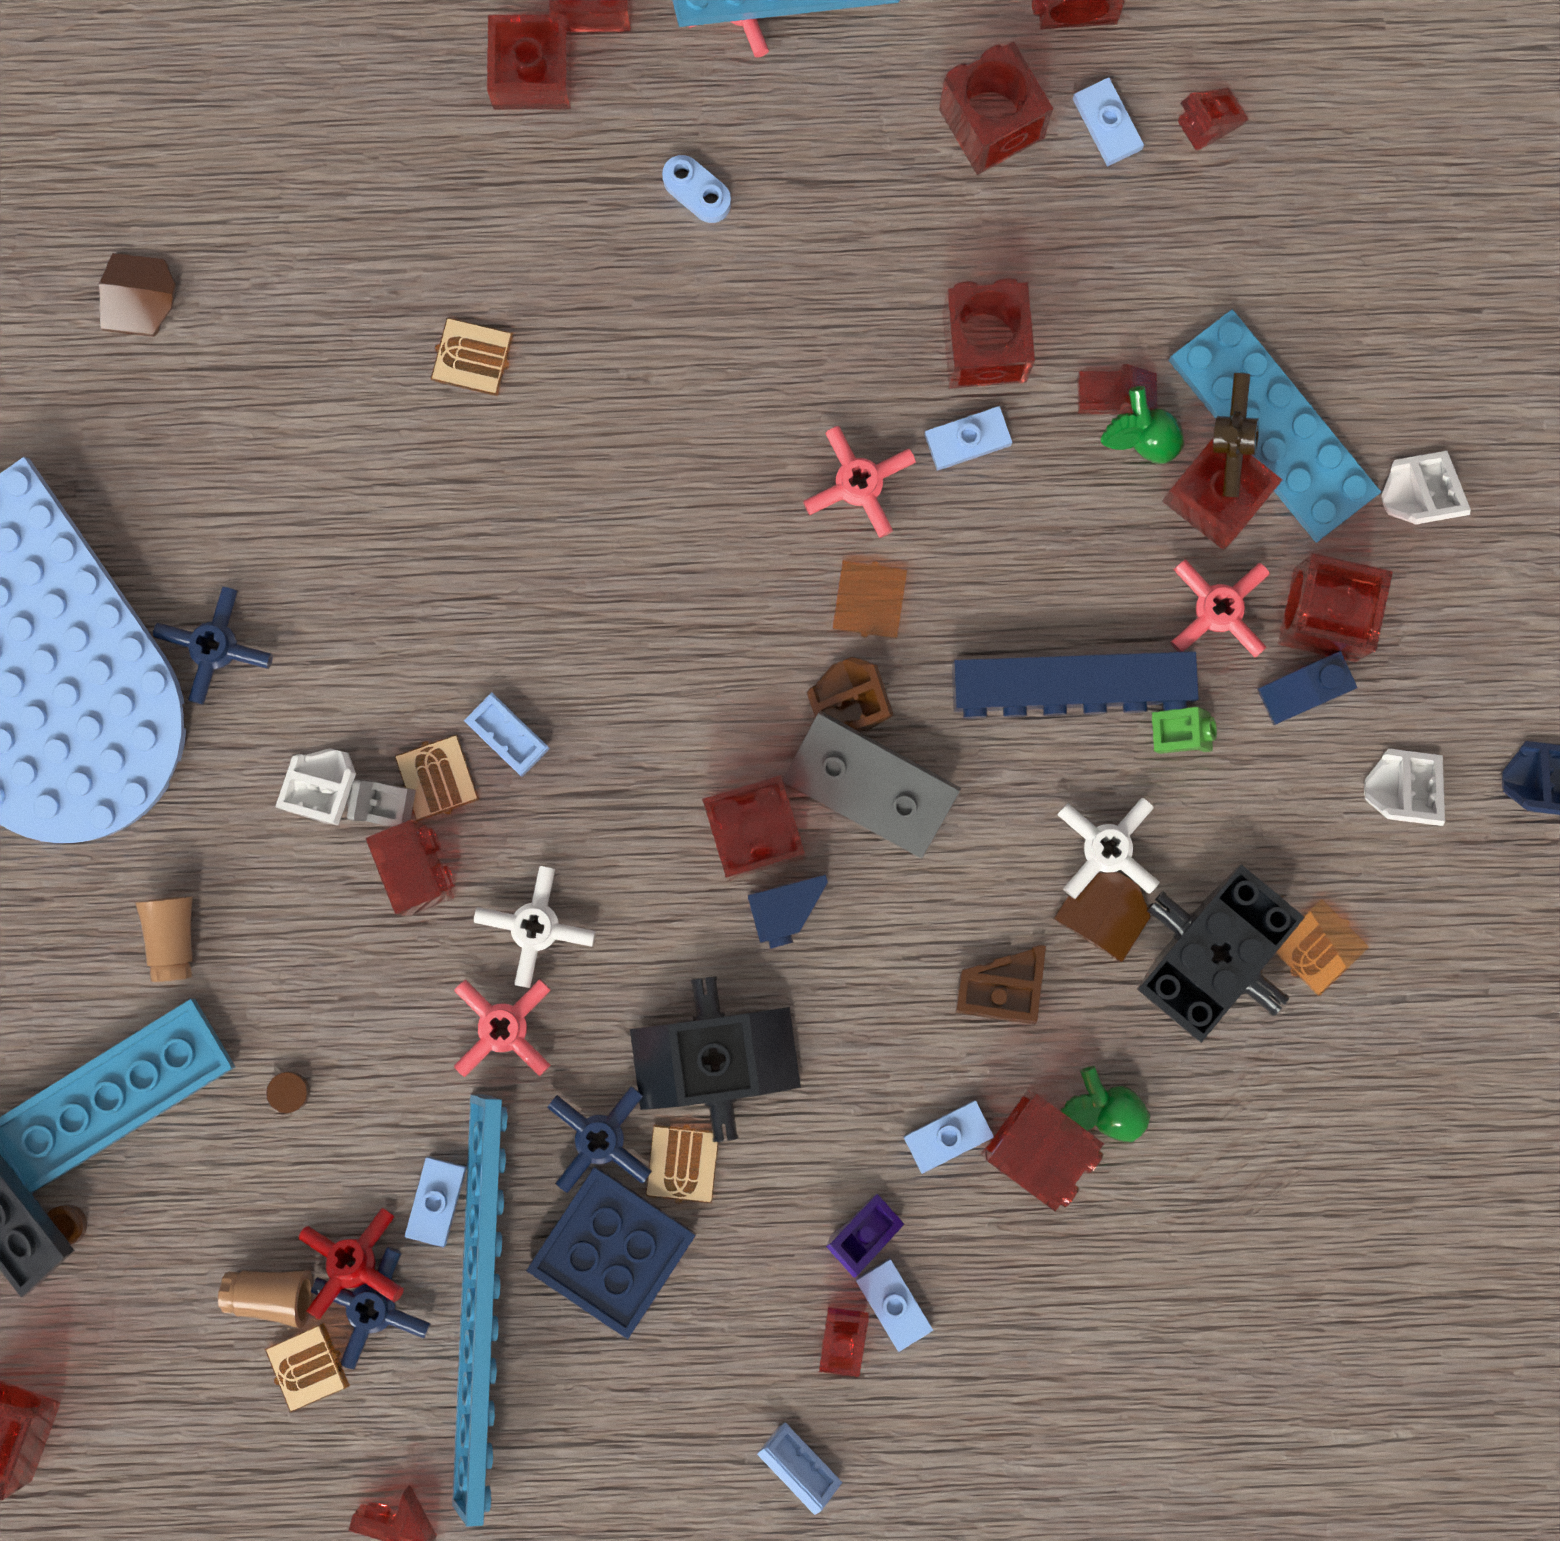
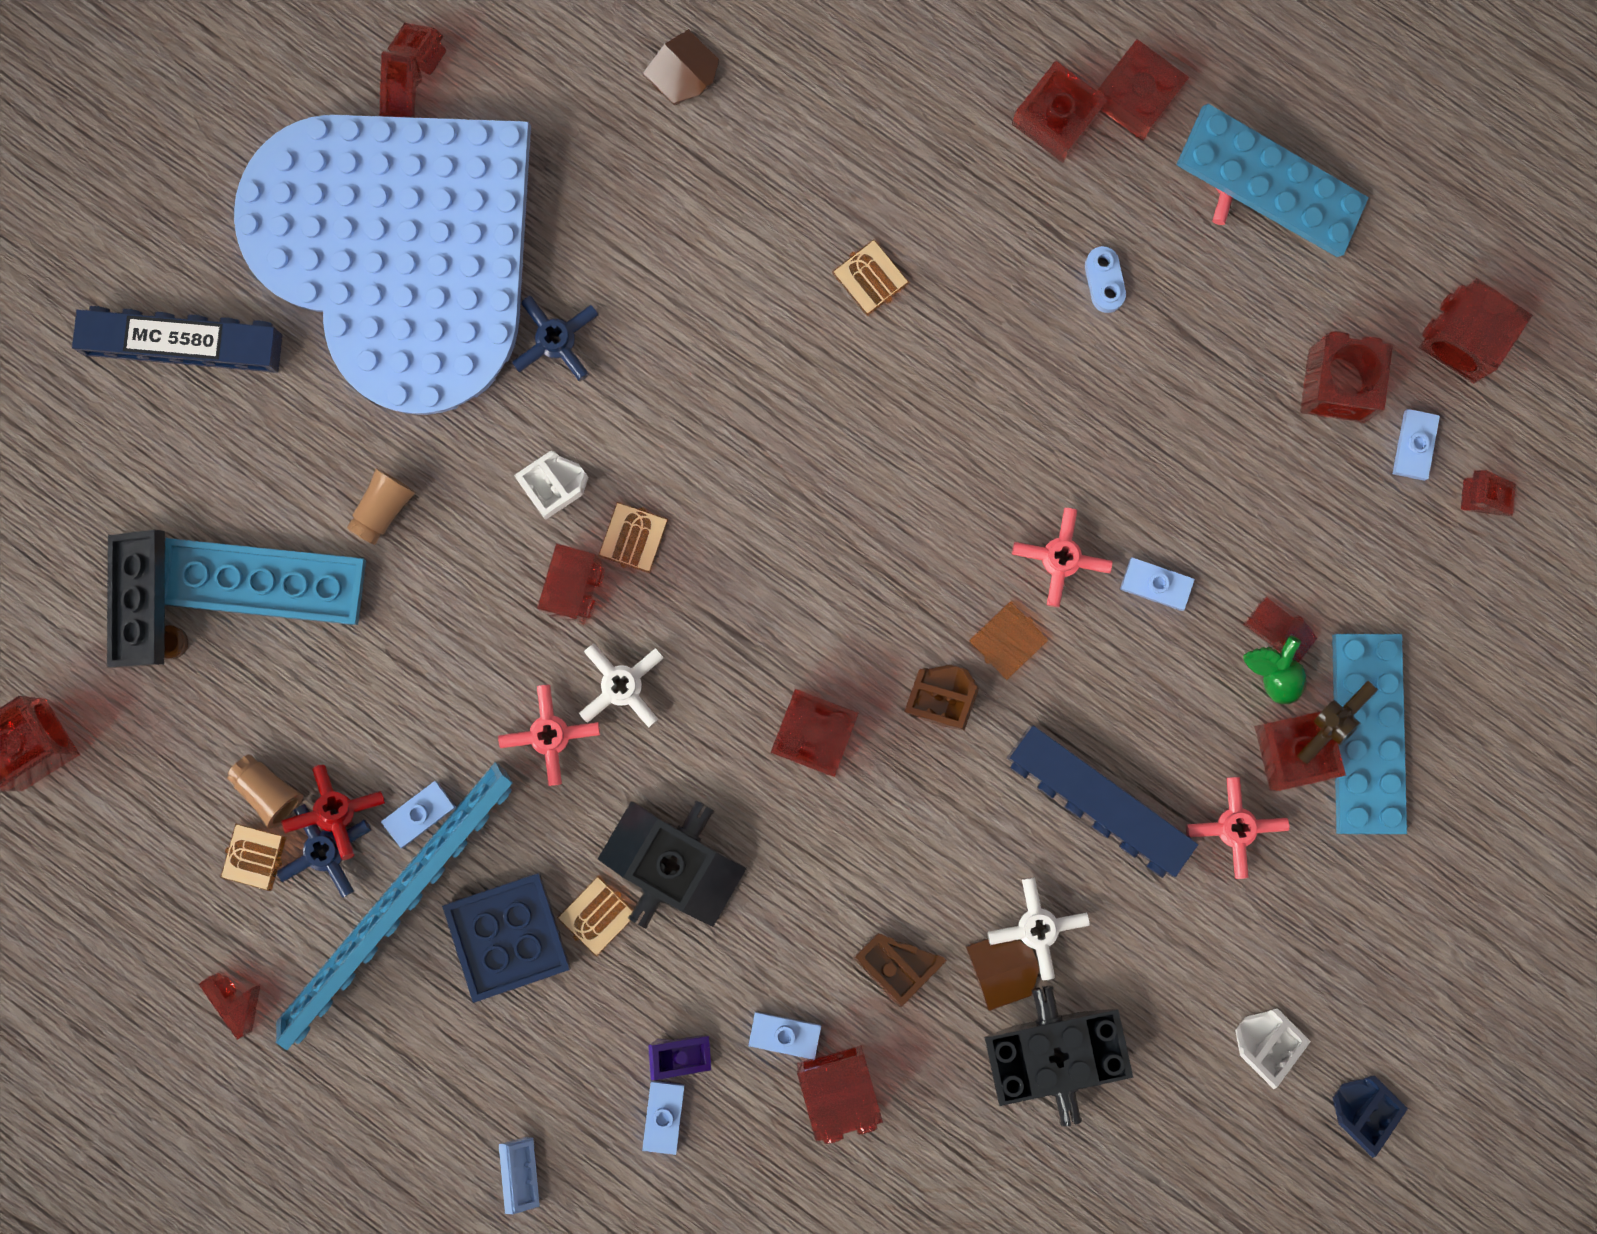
camera: 30 degrees right, 0 degrees up
(288, 1092) = (378, 668): reddish brown tile -> none
(380, 803) = (583, 526): light grey bracket -> none
(507, 734) = (700, 545): light blue plate -> none
(586, 1152) = (550, 869): dark blue bar -> none
(785, 909) = (793, 802): dark blue slope -> none
(843, 1341) = (612, 1115): clear red slope -> none
(871, 784) = (914, 764): dark grey plate -> none
(976, 367) = (1197, 540): clear red brick -> none
(1115, 1112) = (906, 1106): green piece -> none
(1183, 730) = (1149, 889): bright green bracket -> none
(1307, 688) = (1254, 926): dark blue slope -> none
(1321, 948) = (1129, 1105): clear orange piece -> none
(1335, 607) = (1314, 888): clear red brick -> none
(1424, 489) = (1437, 855): white slope -> none

